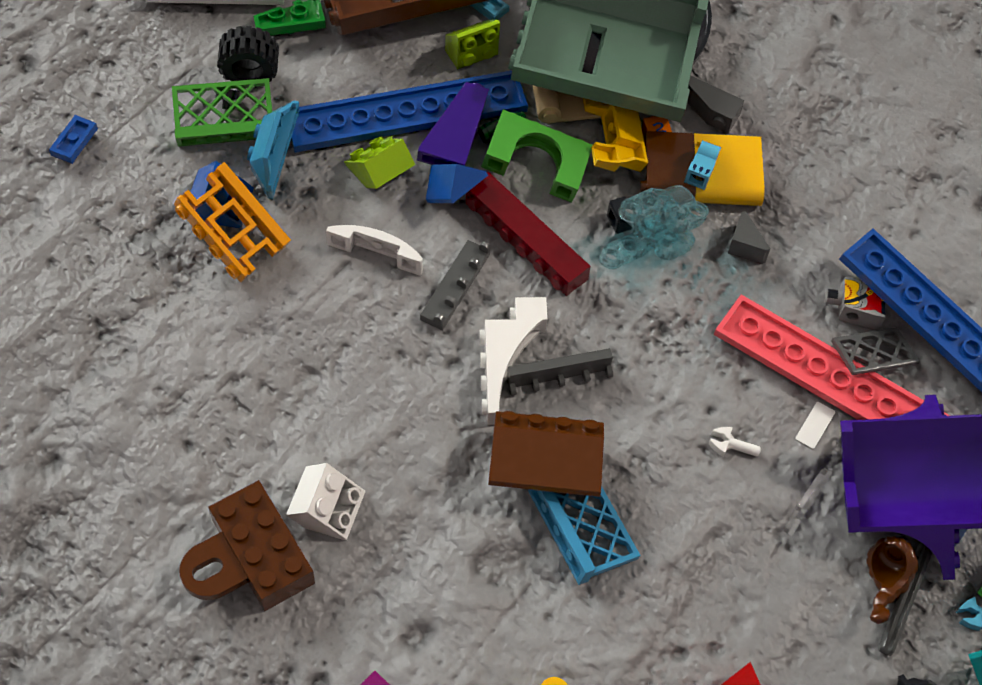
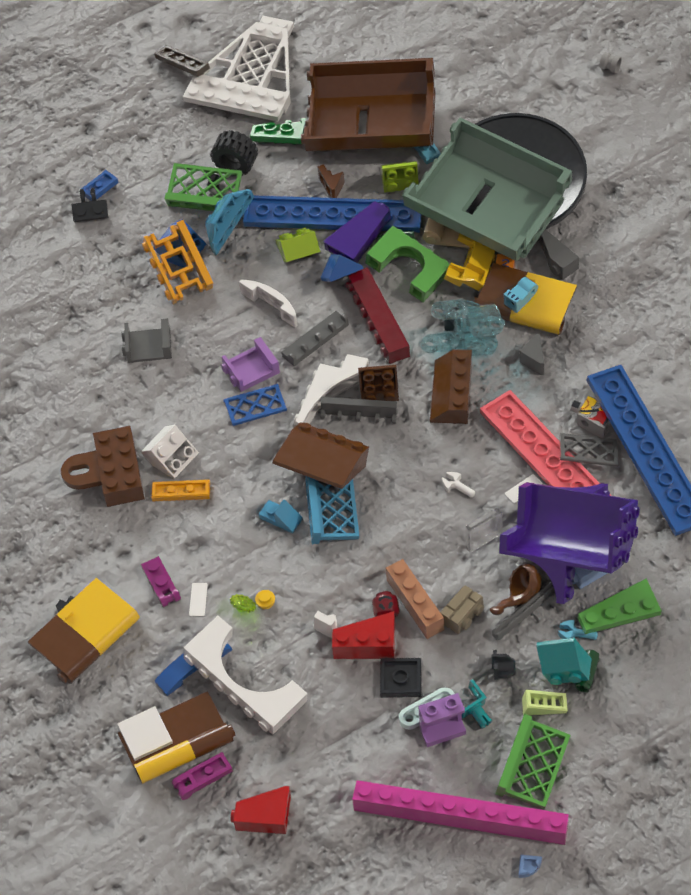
camera: 30 degrees right, 5 degrees down
(73, 175) = (89, 210): none -> black hinge
(229, 347) = (147, 344): none -> dark grey panel
(363, 556) = (180, 490): none -> light orange tile
(386, 71) = (331, 183): none -> reddish brown slope
(387, 344) = (251, 366): none -> medium lavender panel
(413, 419) = (248, 415): none -> blue window
(520, 556) = (281, 515): none -> dark azure slope
(576, 331) = (379, 383): none -> reddish brown slope
(666, 309) = (451, 387): none -> reddish brown slope
(726, 653) = (385, 603): none -> dark red head
(761, 630) = (415, 599): none -> nougat brick
(828, 627) = (462, 609): none -> dark tan brick

